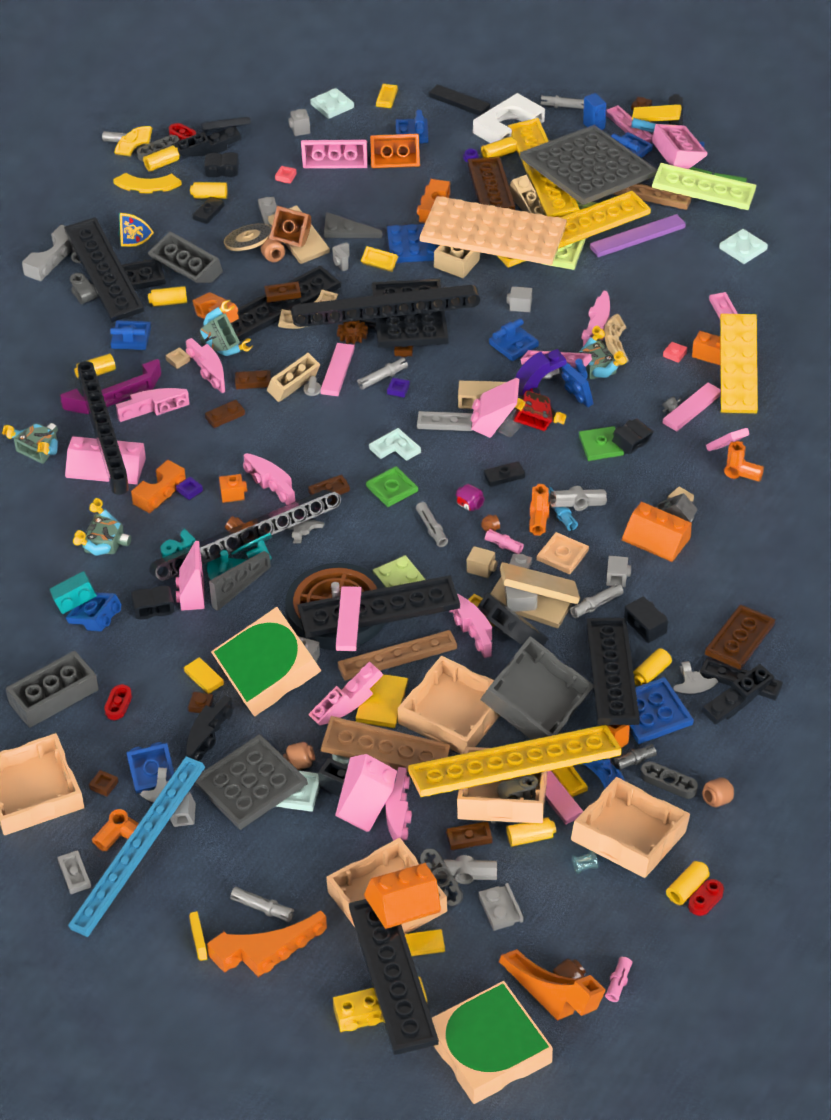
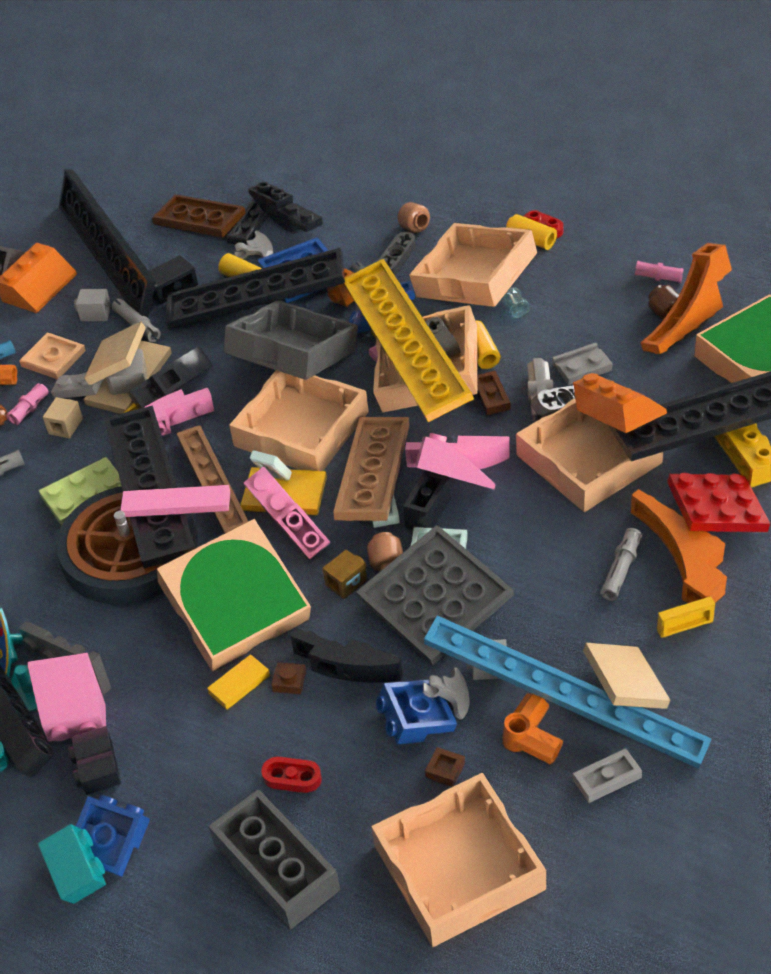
camera: 90 degrees left, 0 degrees up
(146, 885) = (626, 676): none -> tan tile
(284, 732) = (345, 574): none -> pearl gold brick
(305, 971) = (718, 503): none -> red plate
(387, 679) = (272, 464): none -> light aqua tile
(696, 569) = (107, 244): none -> black plate

